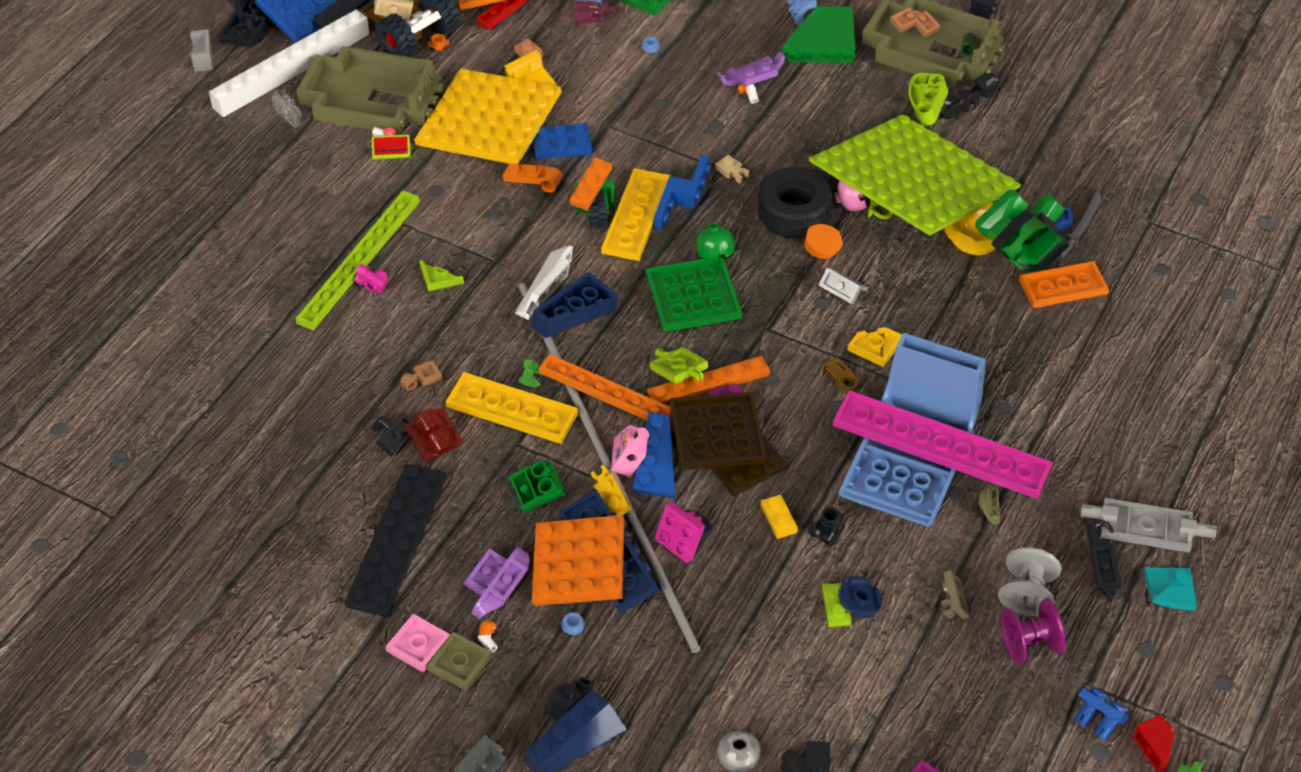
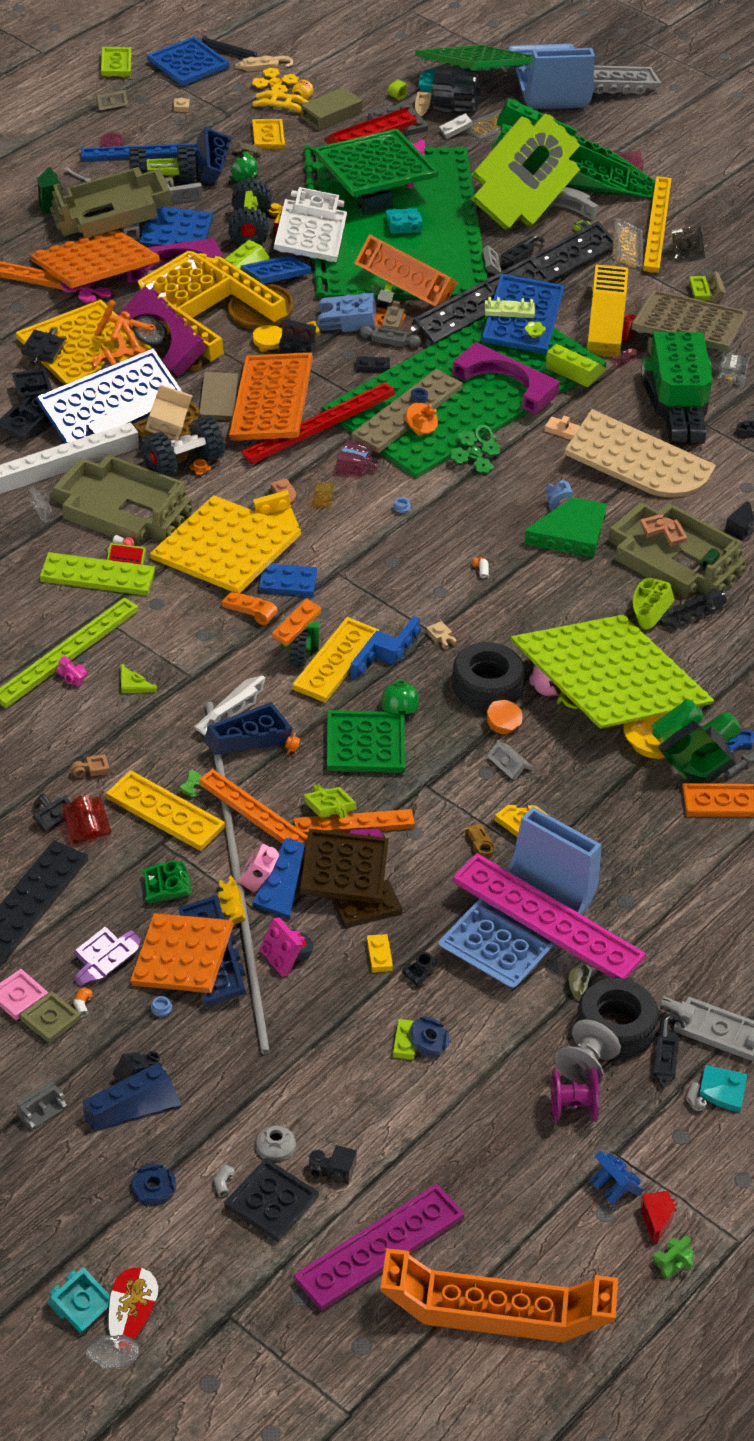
camera: 10 degrees right, 5 degrees down
(367, 171) = (97, 574): none -> lime plate
(570, 47) = (323, 494): none -> clear yellow plate
(620, 310) = (292, 743): none -> orange plate
(753, 72) = (491, 548): medium lavender plate -> none
(957, 600) = (518, 1055): dark tan plate -> none
(1050, 514) = (625, 998): none -> black tyre
(1145, 606) = (693, 1099): none -> light grey arm

